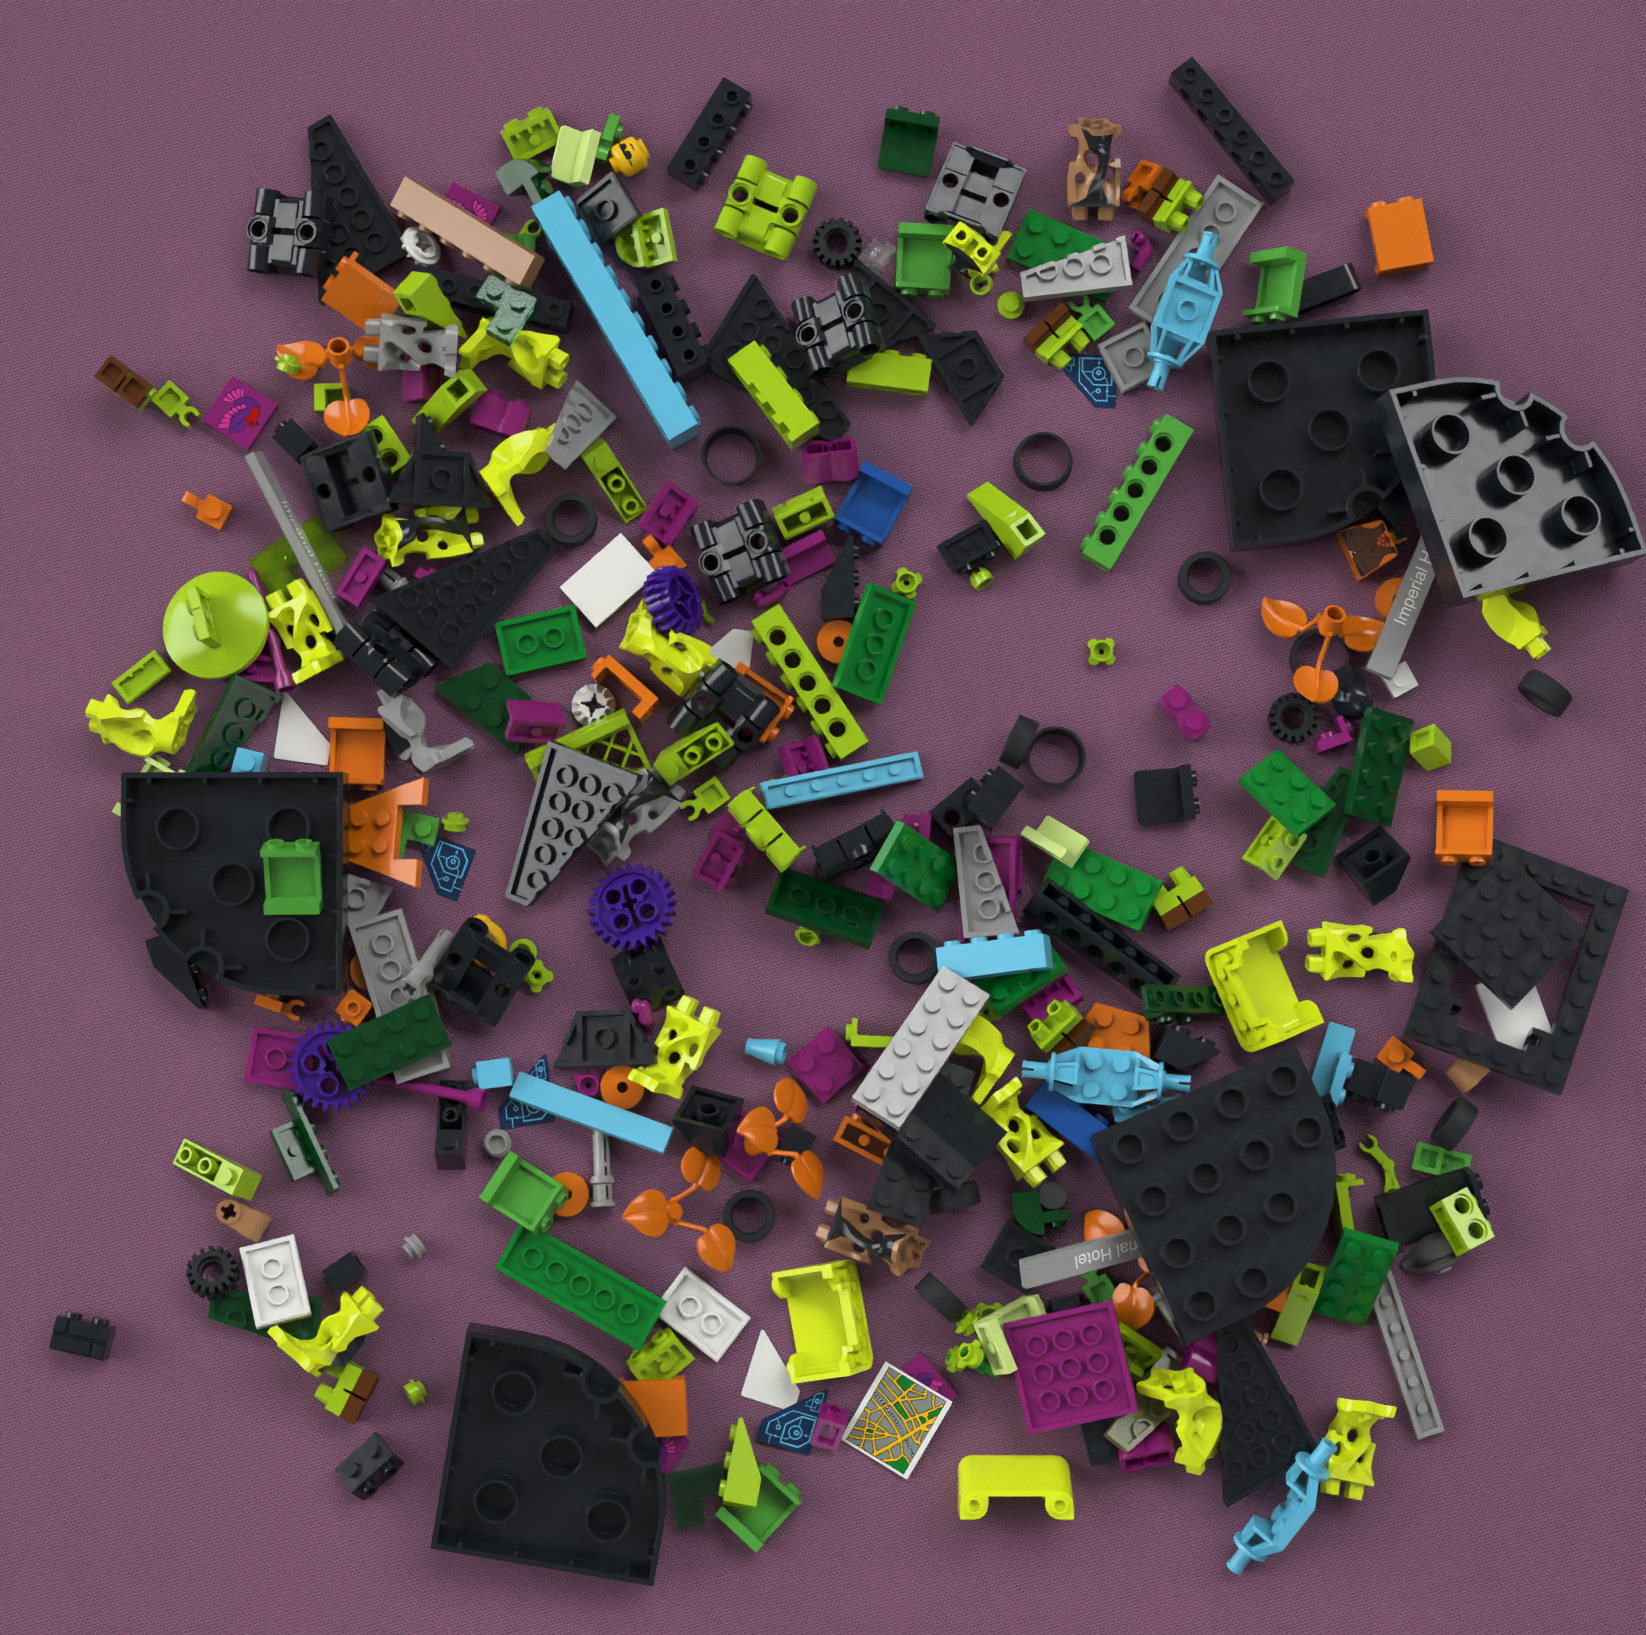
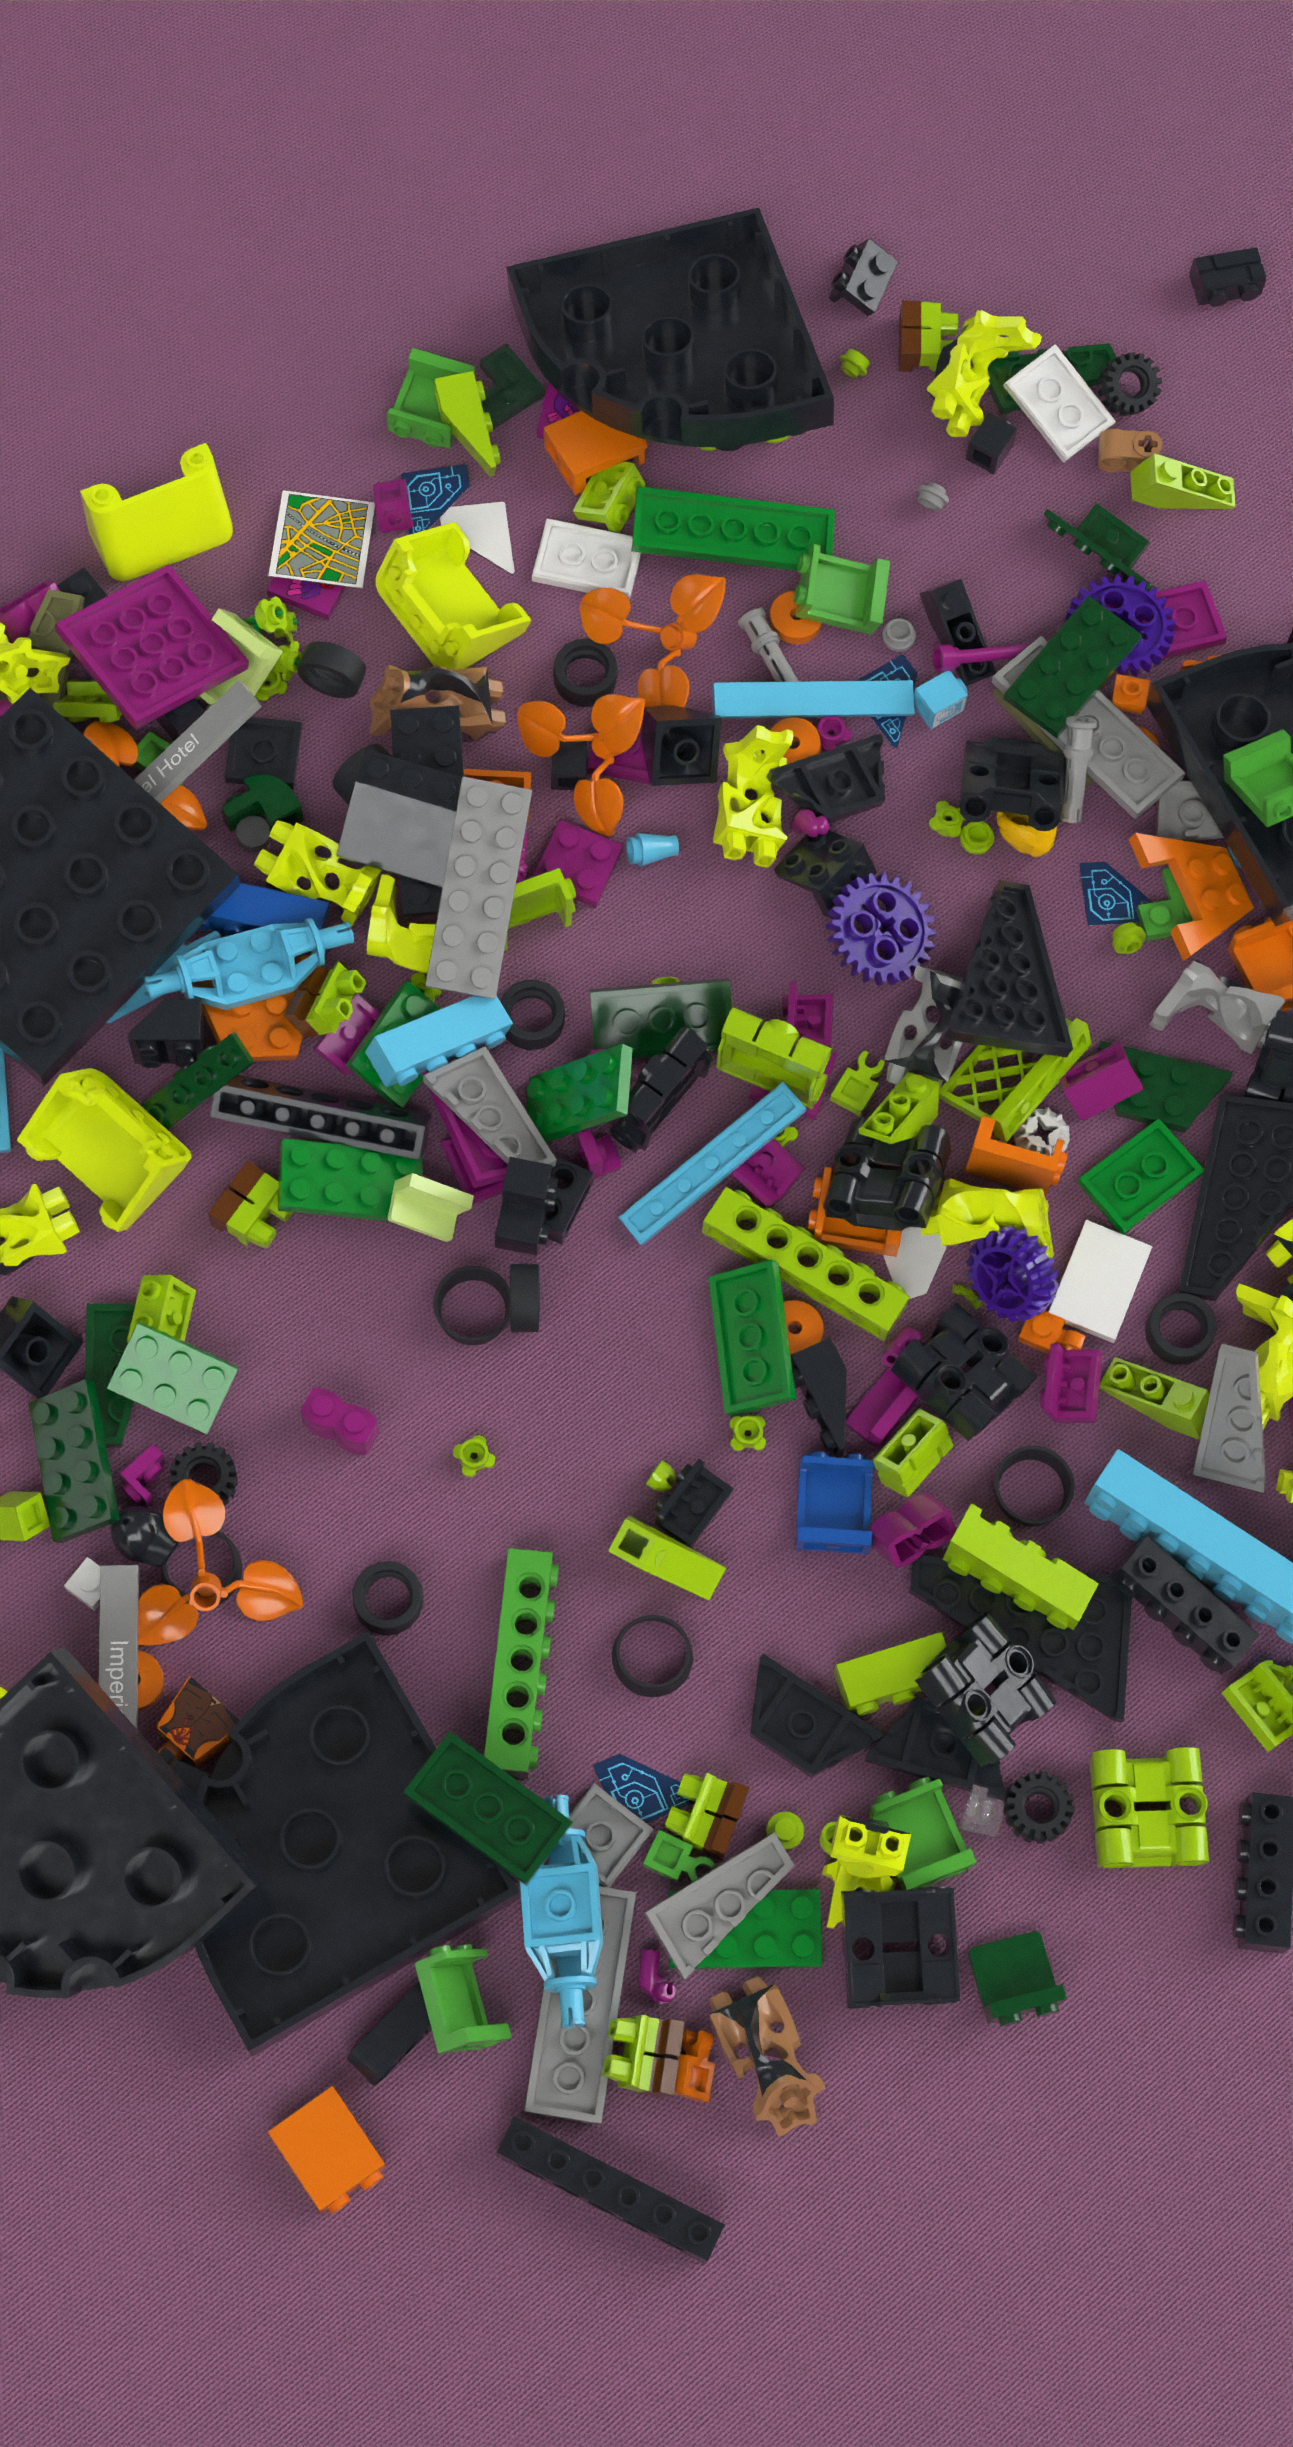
camera: 145 degrees right, 15 degrees down
(1166, 795) = (319, 1319): black bracket -> none
(1208, 389) = (488, 1808): none -> dark green plate

